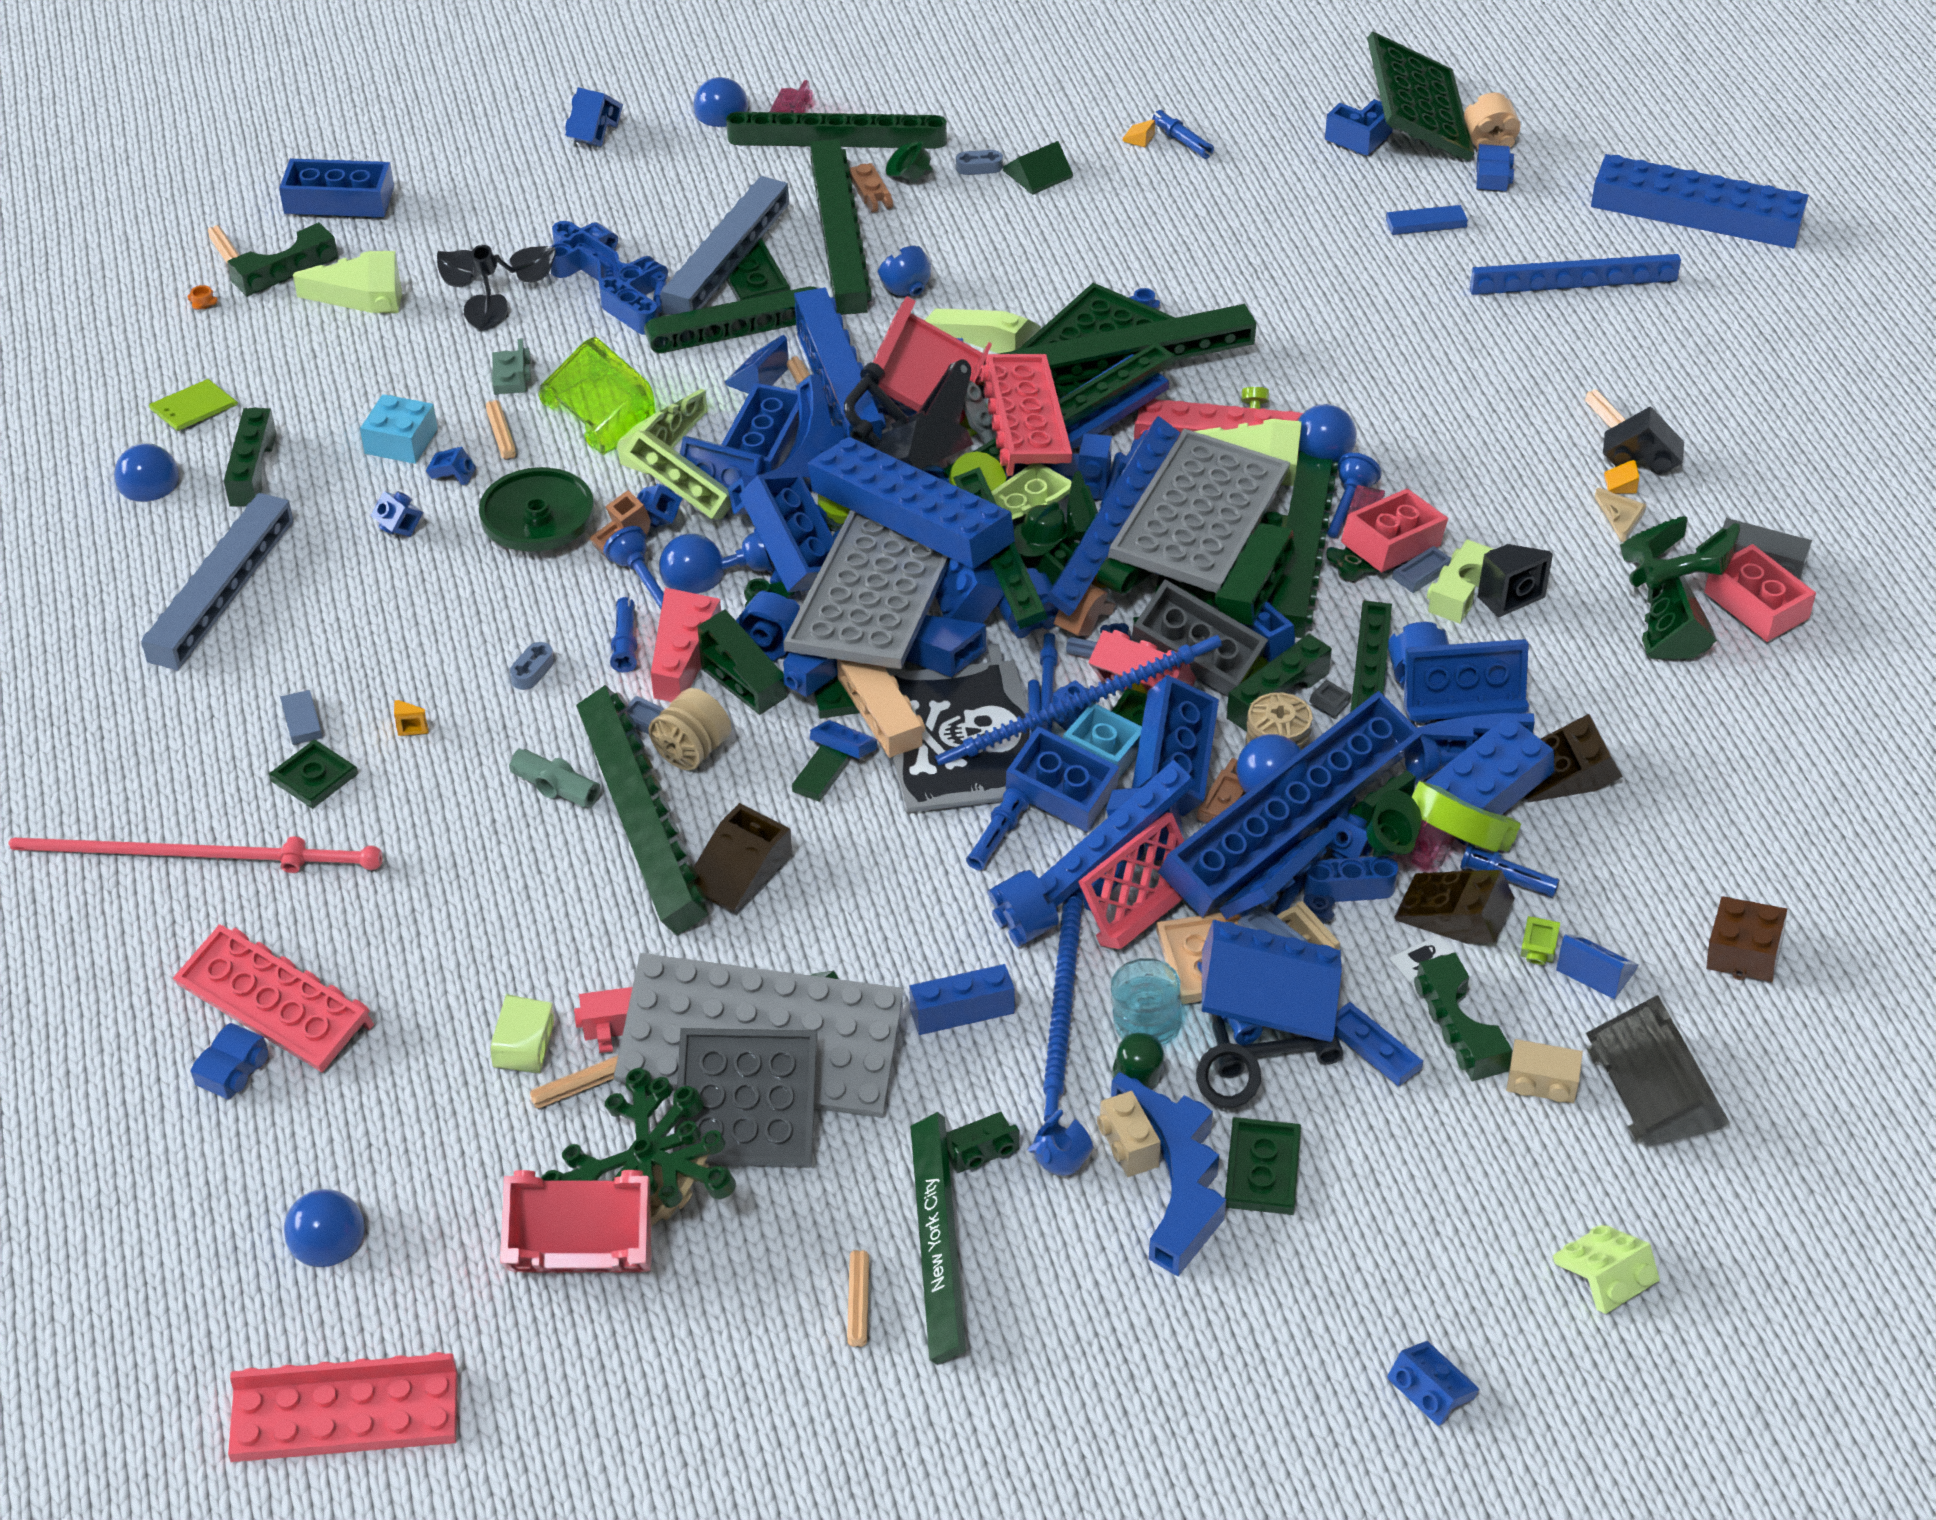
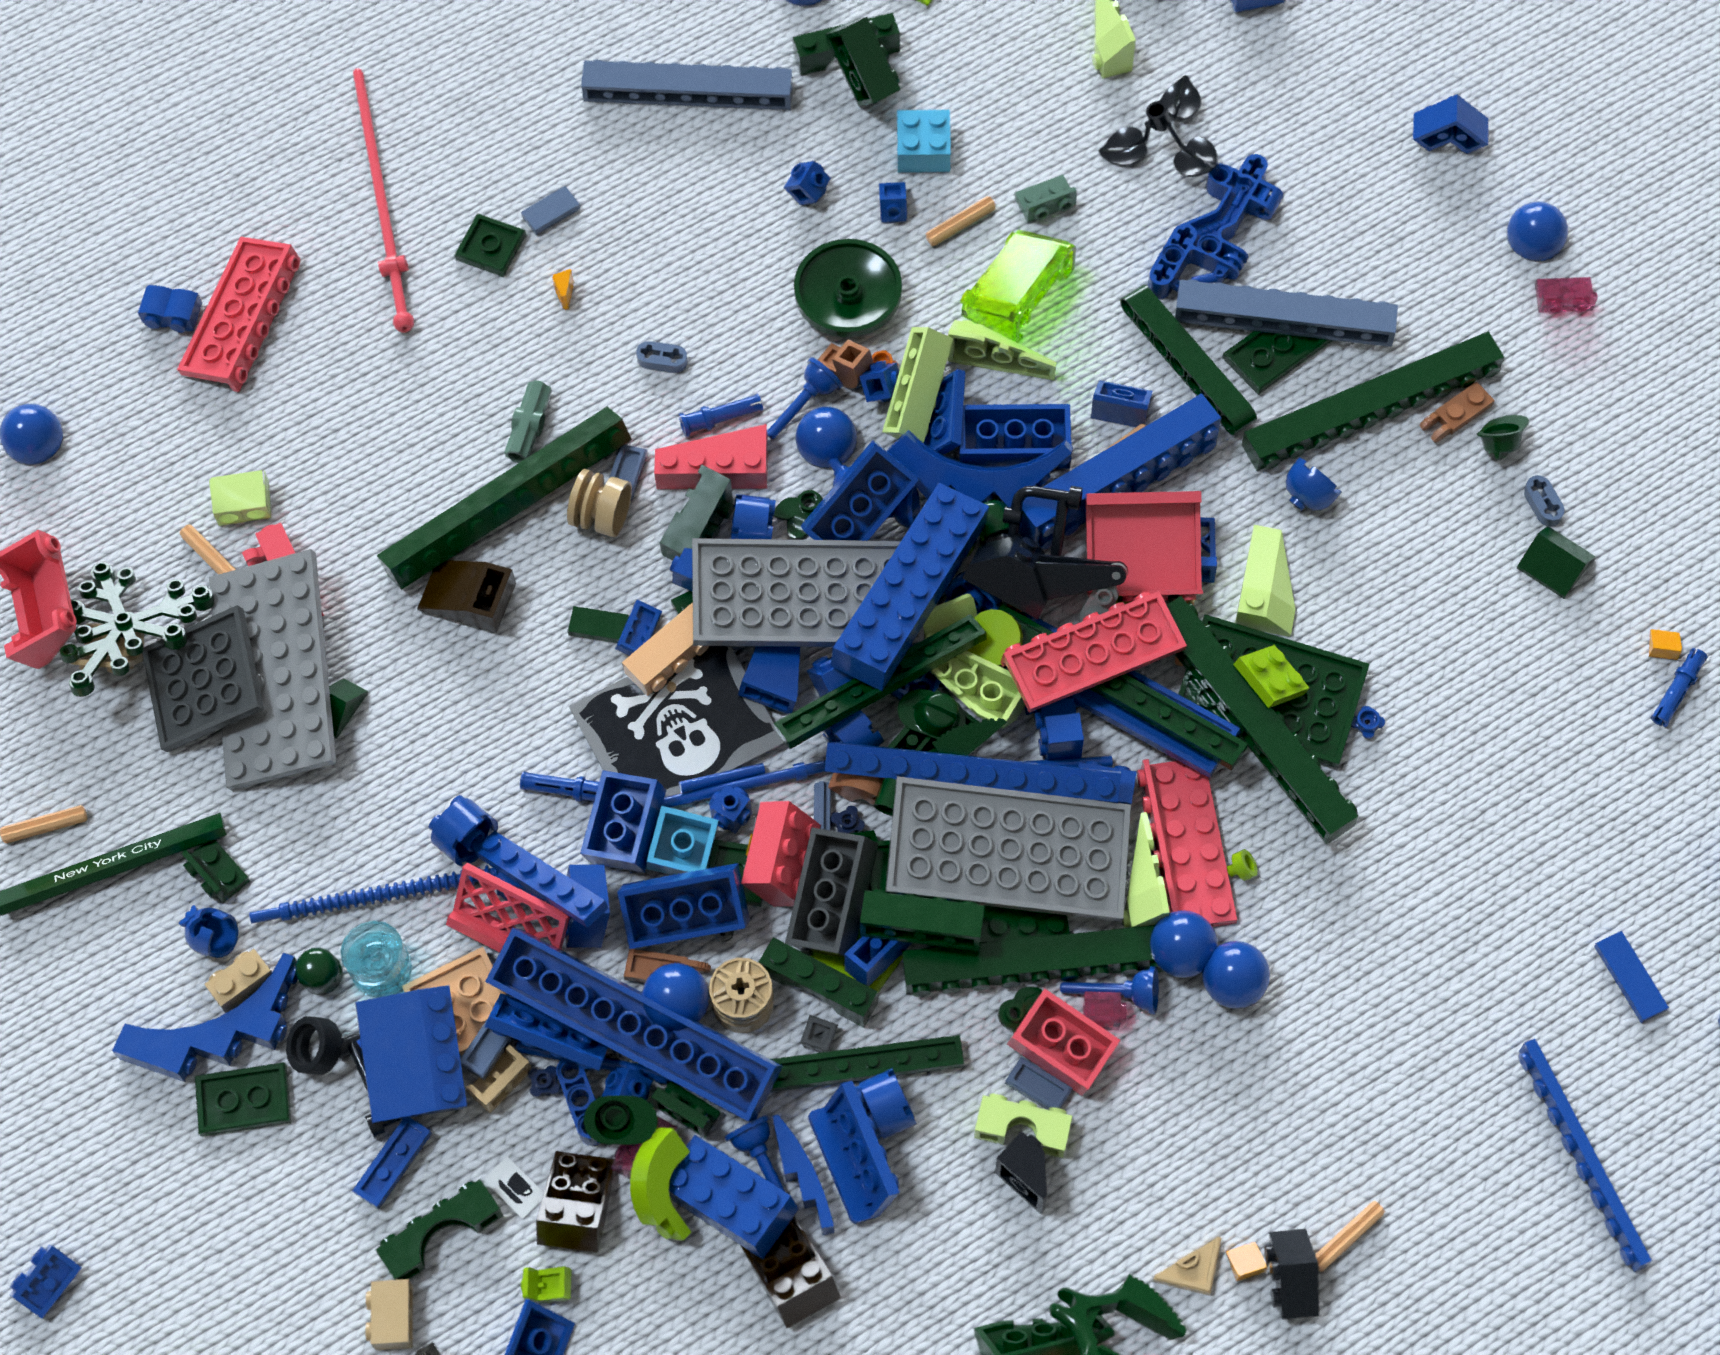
camera: 75 degrees right, 20 degrees up
(293, 430) = (863, 61): none -> dark green brick
(851, 129) = (1533, 361): dark green beam -> none
(962, 999) = (355, 812): blue brick -> none
(1097, 323) = (1271, 676): none -> lime plate
(1184, 655) = (712, 811): blue hose -> none
(1370, 410) = (1236, 975): none -> blue piece
(1525, 877) = (631, 1250): blue pin -> none

